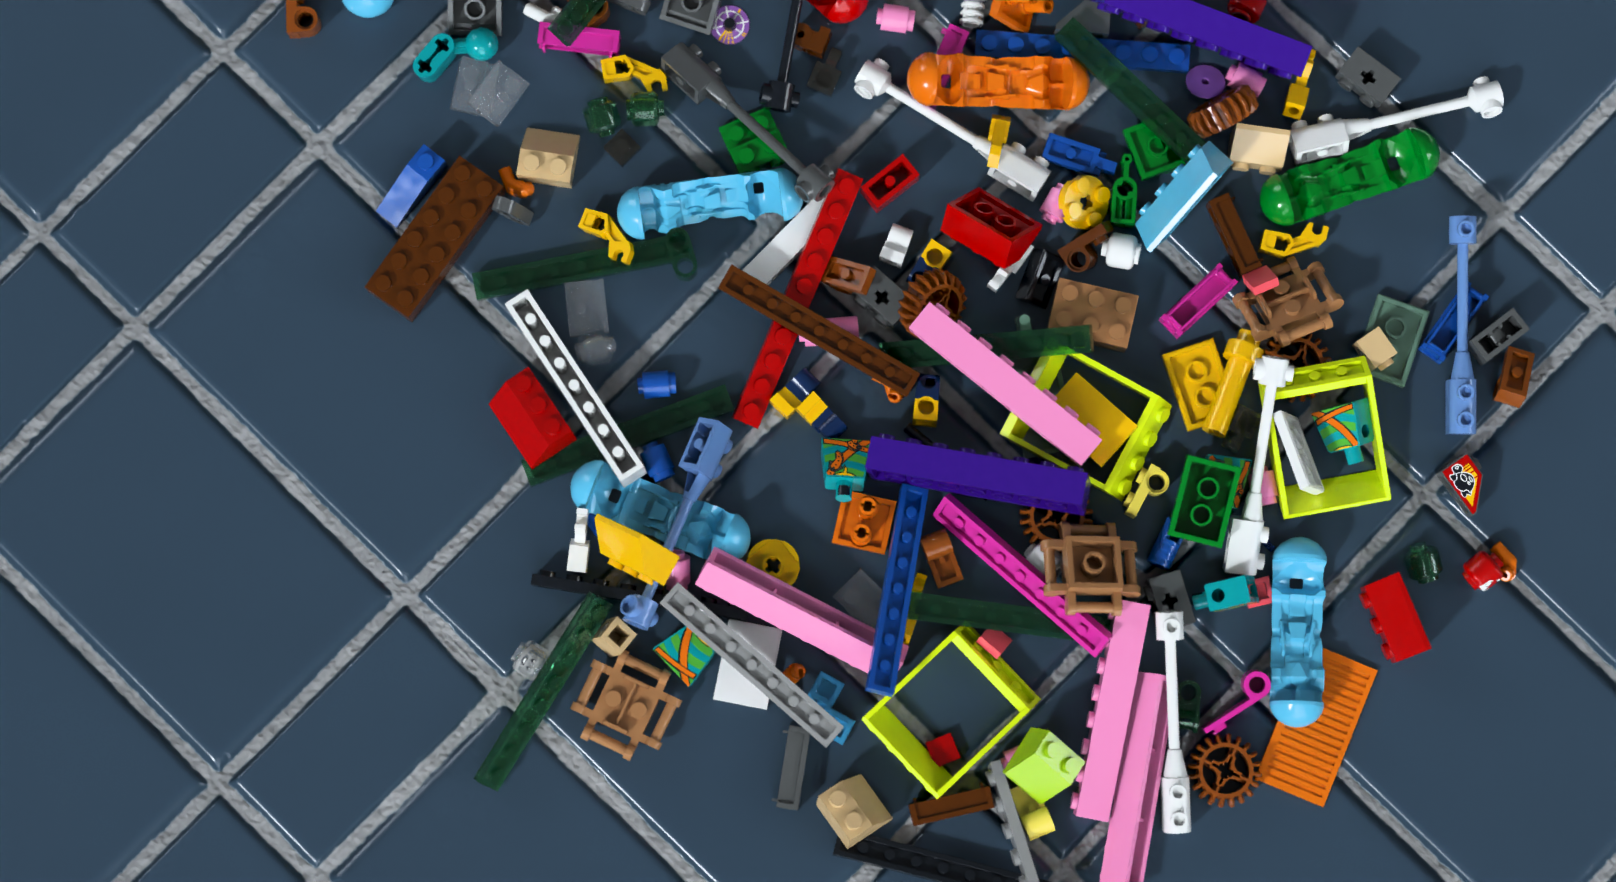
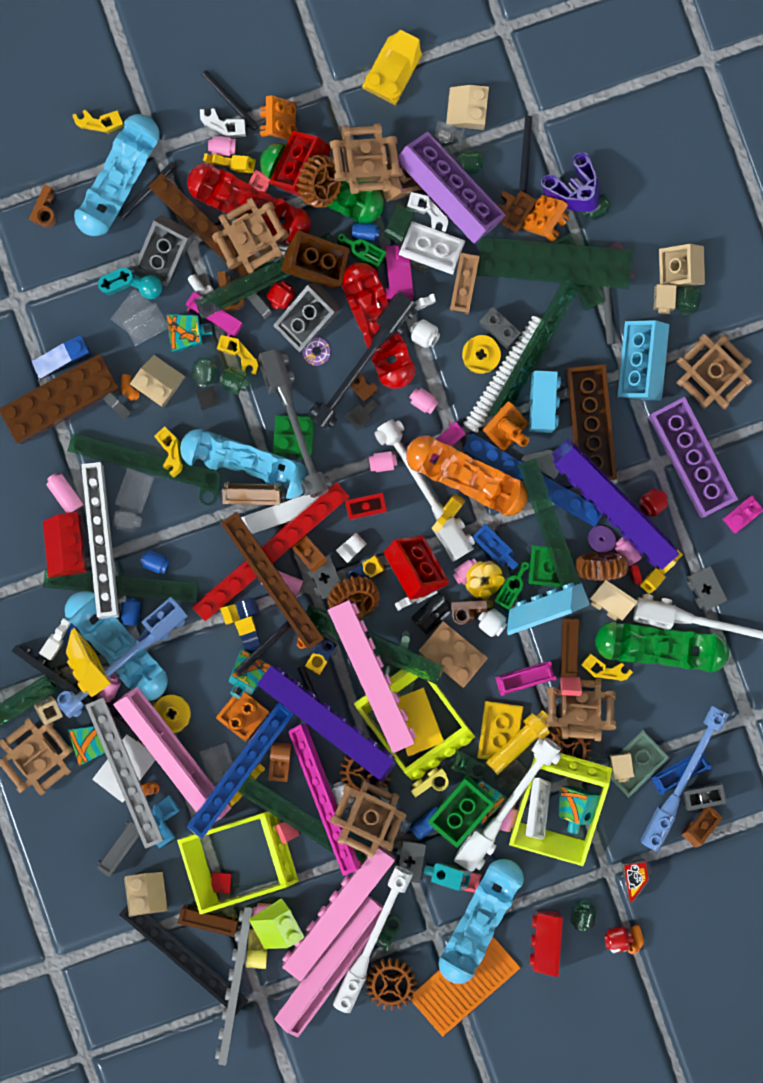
camera: 25 degrees right, 5 degrees up
(498, 354) = (64, 493): none -> bright pink brick
(554, 77) = (186, 331): none -> torso
(738, 238) = (252, 494): none -> medium nougat container
(849, 422) = (262, 648): none -> black bar
(882, 119) = (382, 461): none -> bright pink brick
(1180, 444) = (467, 765): none -> clear green piece
(1255, 687) = (436, 943): dark pink door -> none
(1270, 104) = (635, 574): none -> red tile

